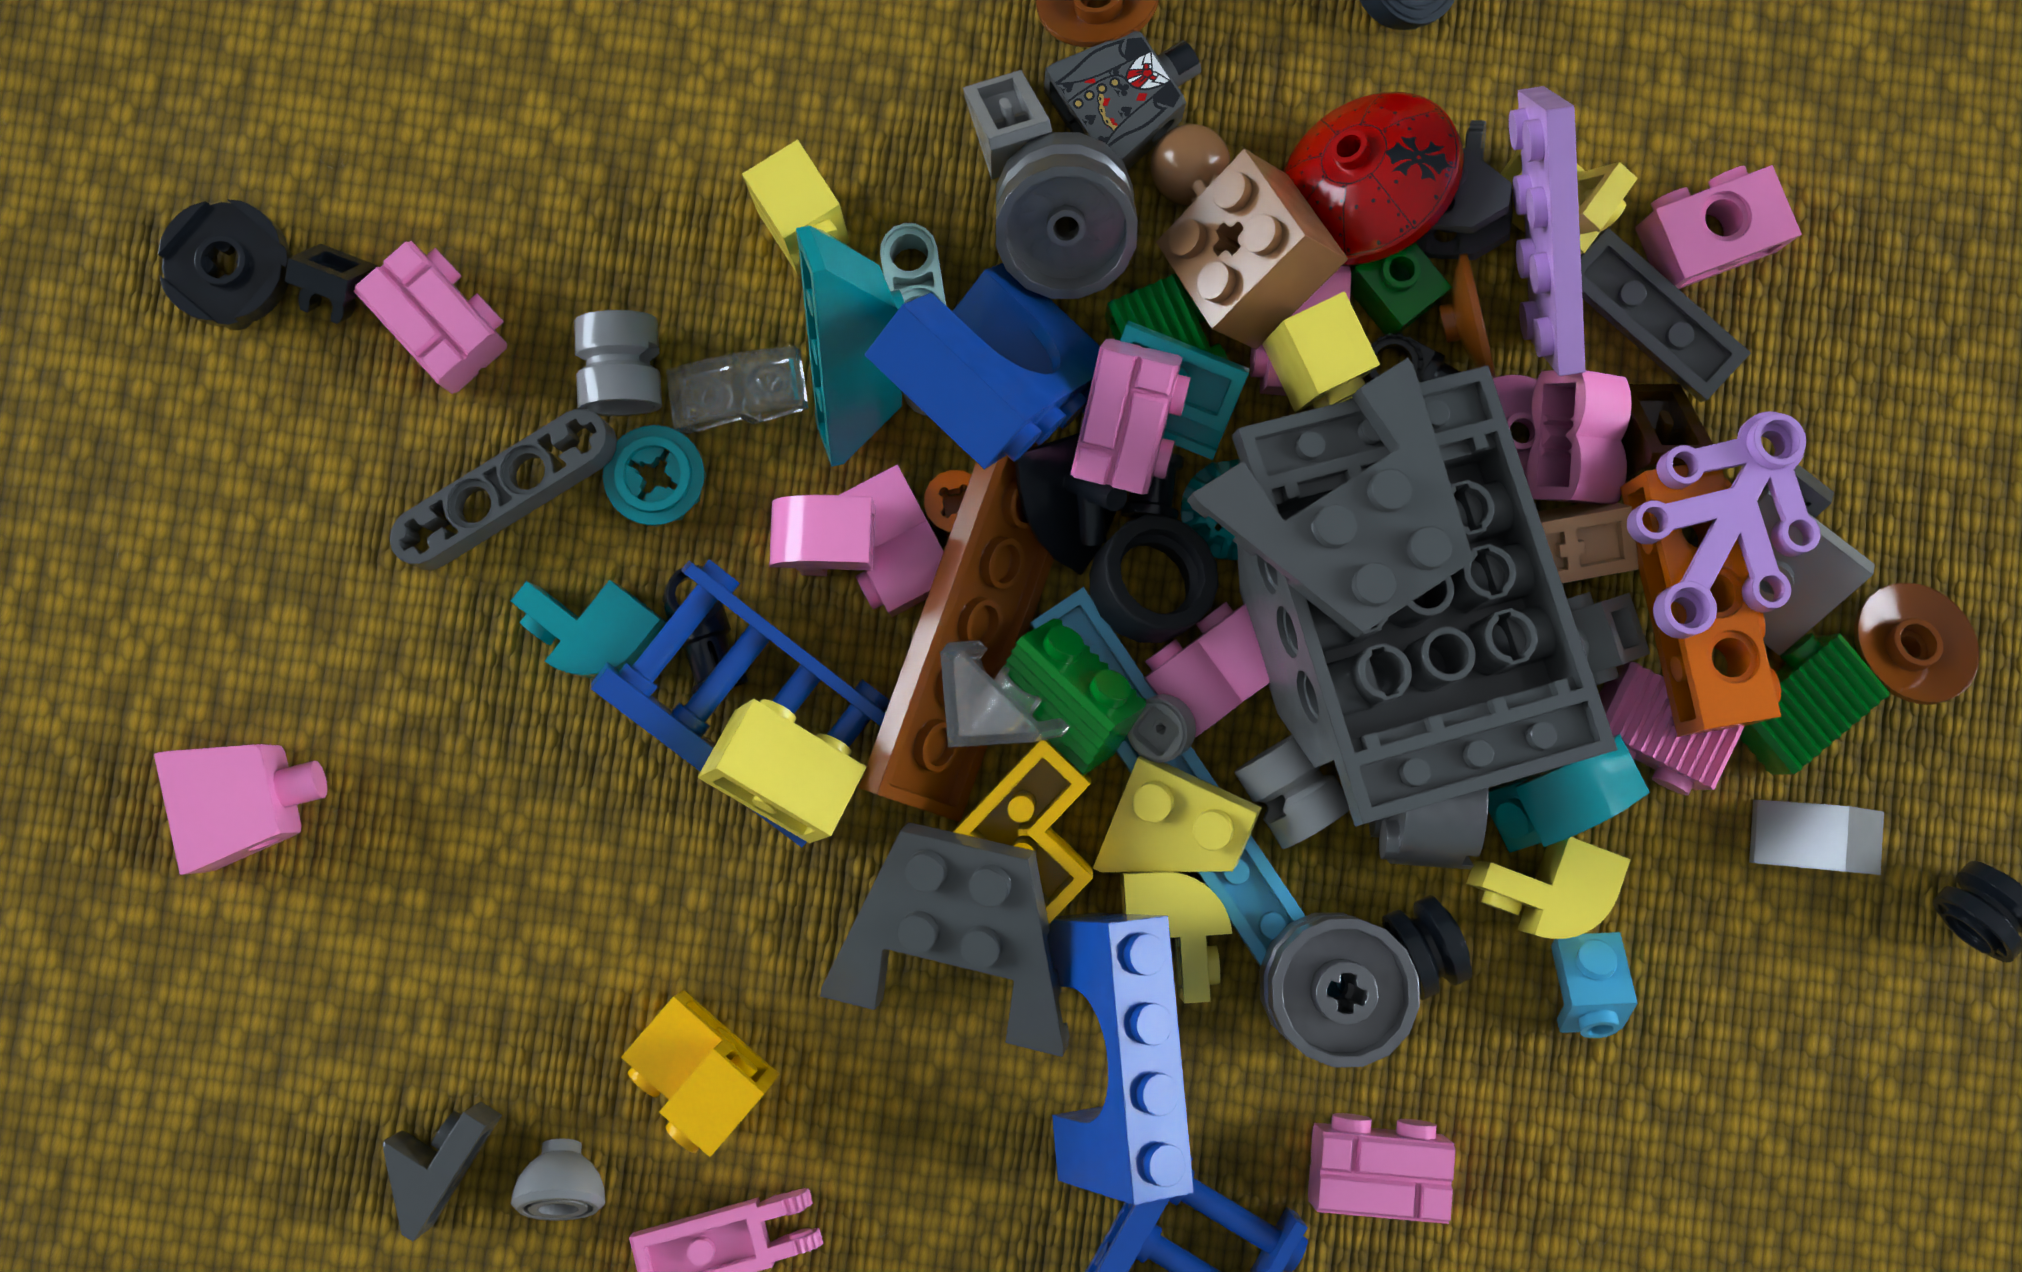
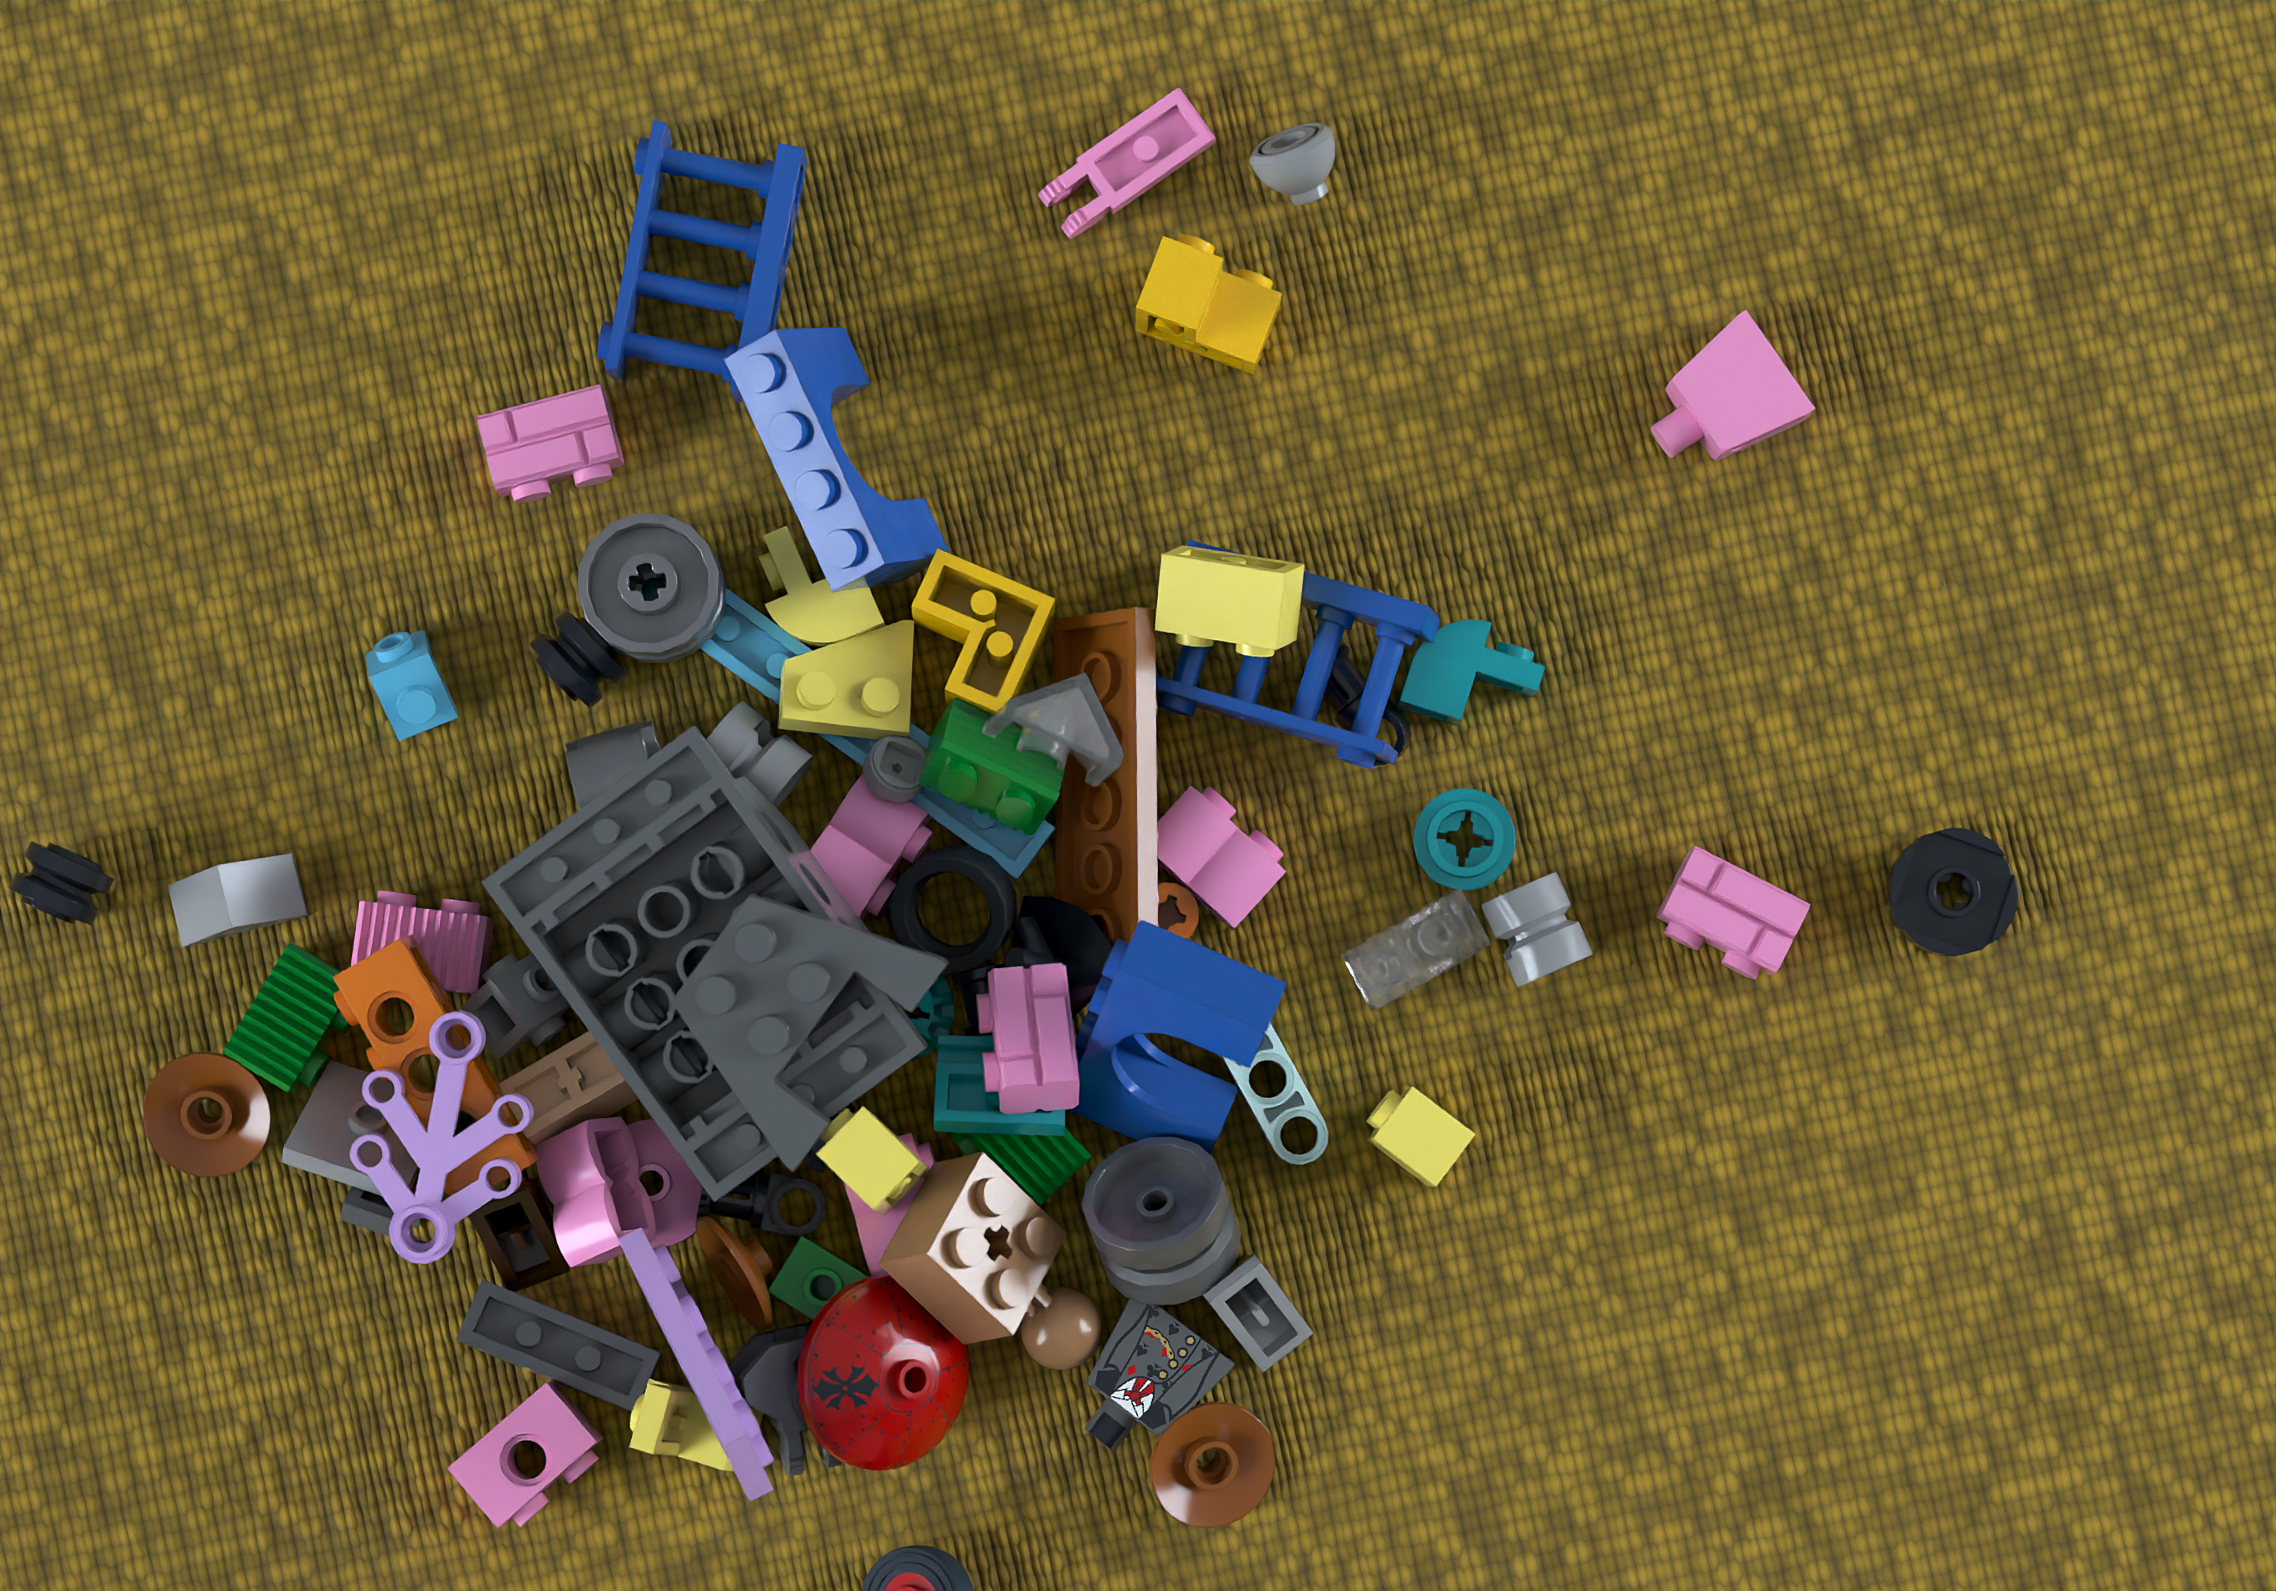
camera: 165 degrees right, 0 degrees up
(328, 274) = (1844, 916): black tile -> none
(427, 1178) = (1417, 123): dark grey slope -> none
(507, 499) = (1592, 766): dark grey beam -> none
(822, 533) = (1277, 831): bright pink brick -> none
(845, 314) = (1319, 1021): teal wedge -> none
(963, 907) = (1018, 537): dark grey wing -> none
(1566, 799) = (489, 840): teal brick -> none
(1567, 897) = (460, 754): light yellow brick -> none

